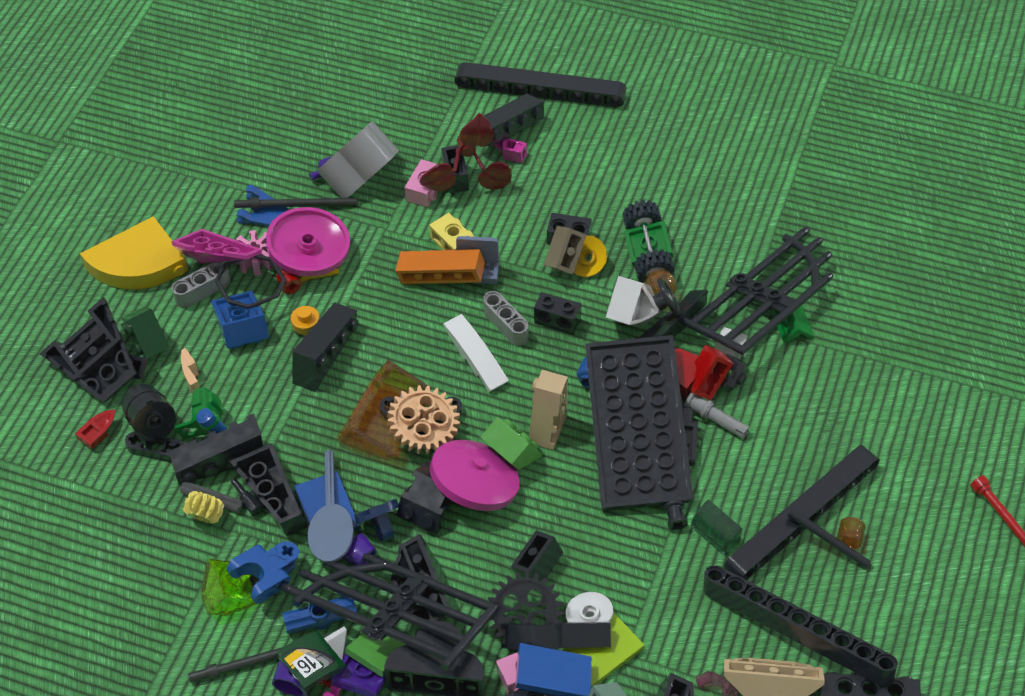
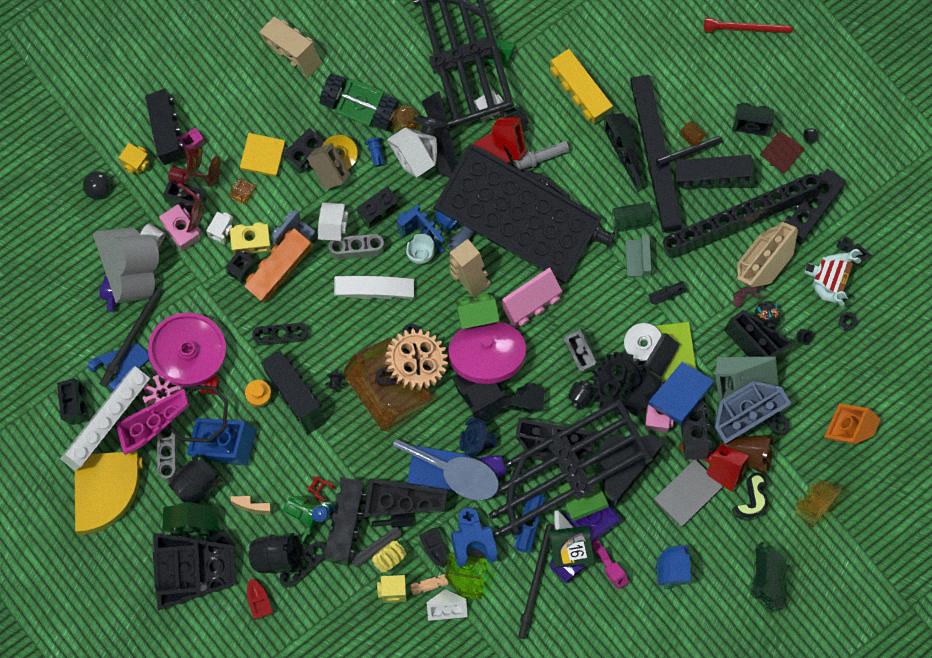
camera: 60 degrees left, 20 degrees up
(170, 527) = (392, 589): none -> light yellow brick
(183, 589) = (446, 606): none -> white slope
(185, 314) = (194, 481): none -> black piece
(194, 559) = (429, 584): none -> light nougat axle
(198, 215) = (104, 418): none -> white brick
(203, 189) = (73, 401): none -> black brick
(237, 412) = (310, 488): none -> red piece
(243, 540) = (434, 546): none -> black plate
(359, 372) = (335, 380): none -> black wheel
(377, 300) = (266, 339): none -> black beam
(401, 168) = (157, 234): none -> white piece
(421, 240) = (240, 259): none -> black brick
(422, 110) = (97, 185): none -> black hair
(446, 205) = (220, 227): none -> white brick
(448, 538) = (527, 399): none -> black arch
(462, 115) = (134, 159): none -> yellow brick
(486, 582) = (580, 395): none -> black head
(496, 210) = (242, 191): none -> clear orange slope
(513, 281) = (332, 221): none -> white brick
(535, 365) = (420, 249): none -> light aqua hair
(539, 205) = (262, 154): none -> yellow tile
(540, 84) = (135, 78): black beam -> none
(560, 482) = (531, 298): none -> bright pink slope
(561, 342) = (410, 220): none -> blue plate
(578, 396) = (459, 238): none -> sand blue cone
(608, 288) = (376, 152): none -> blue pin
(660, 170) = (292, 45): none -> tan wedge
(660, 606) = (667, 292): none -> black axle
(680, 560) = (638, 257): none -> sand green panel
(793, 474) = (621, 136): none -> black wedge
(815, 407) = (580, 86): none -> yellow brick
(829, 579) = (716, 172): none -> black wedge
(905, 632) = (782, 152): none -> clear red piece
(913, 579) = (753, 119): none -> black slope
(945, 648) = (810, 135): none -> black hinge

